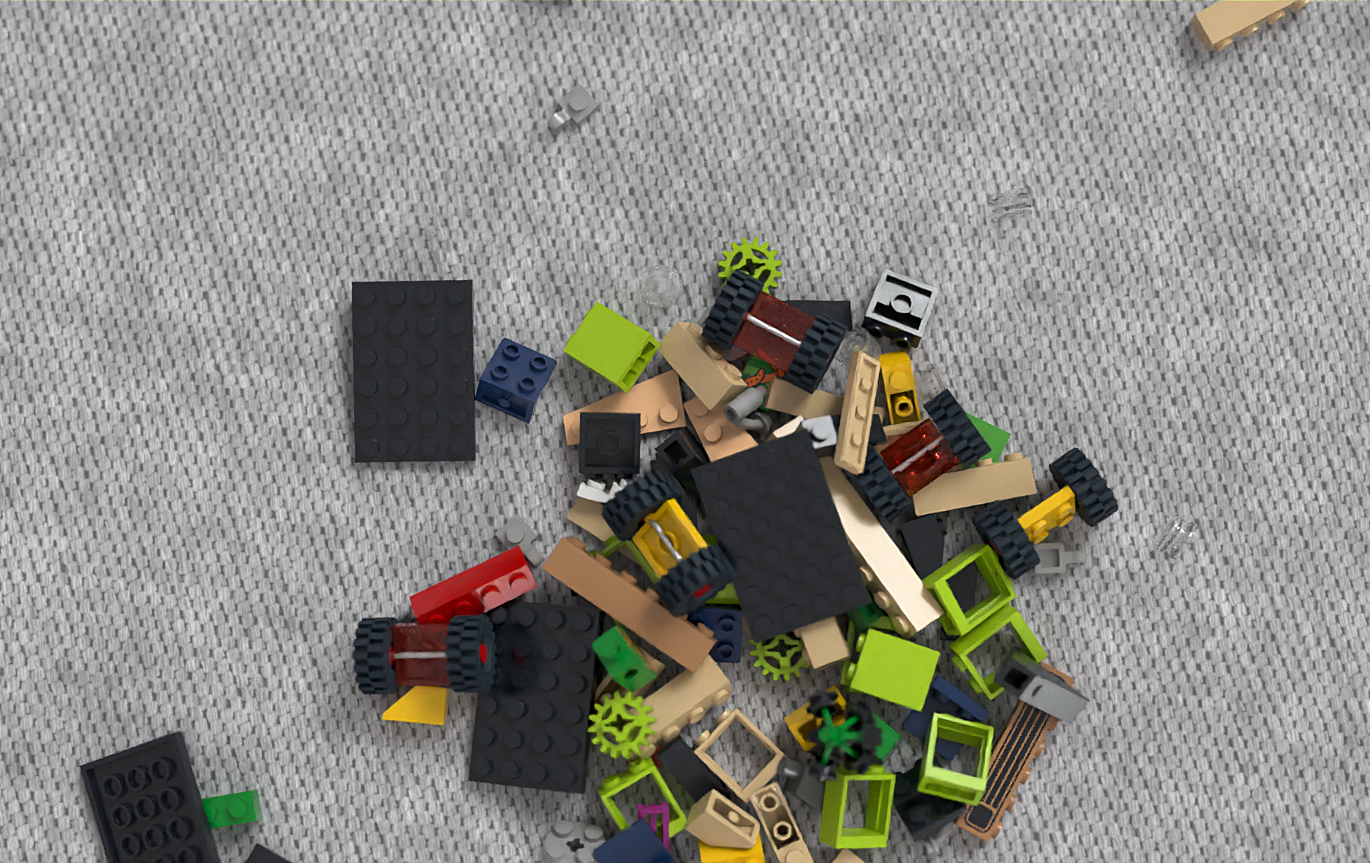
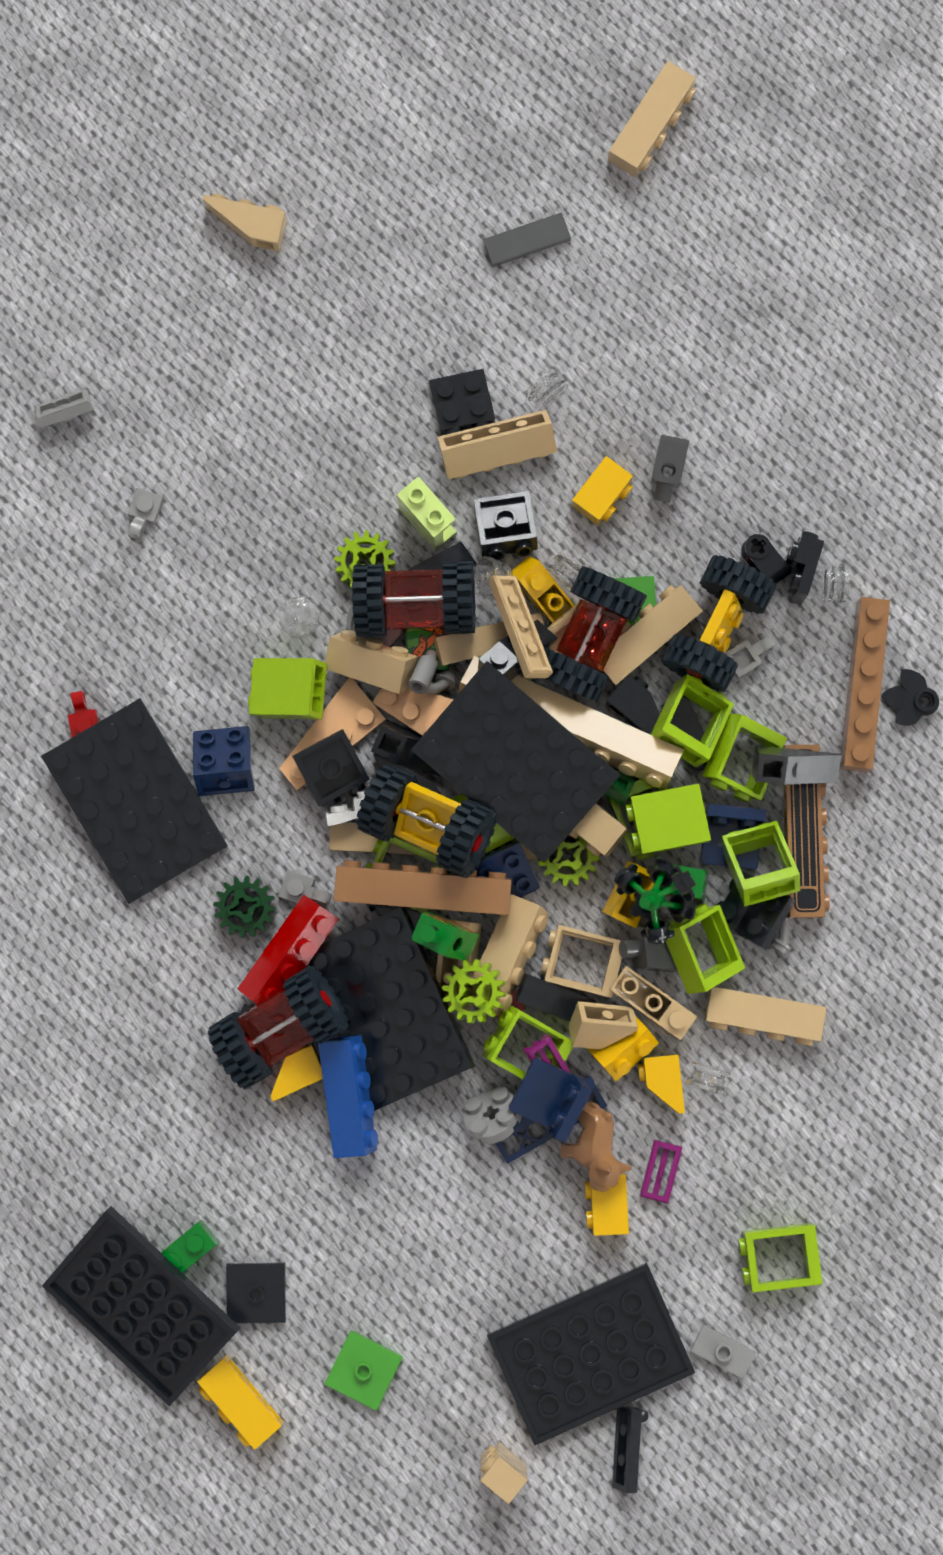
camera: 30 degrees left, 0 degrees up
(410, 268) = (82, 718): none -> red plate
(453, 755) = (348, 1096): none -> blue brick
(461, 511) = (241, 894): none -> dark green gear
(831, 257) = (426, 513): none -> yellowish green panel
(924, 173) = (462, 401): none -> black plate
(934, 230) = (497, 444): none -> tan brick
(1008, 328) = (602, 491): none -> yellow brick
(1071, 54) = (527, 239): none -> dark grey tile
(1092, 330) = (670, 453): none -> dark grey torso
(1123, 483) = (766, 560): none -> black piece
(1149, 647) = (864, 684): none -> medium nougat brick
(1157, 500) = (803, 561): none -> black plate
(1183, 681) = (906, 698): none -> black plate

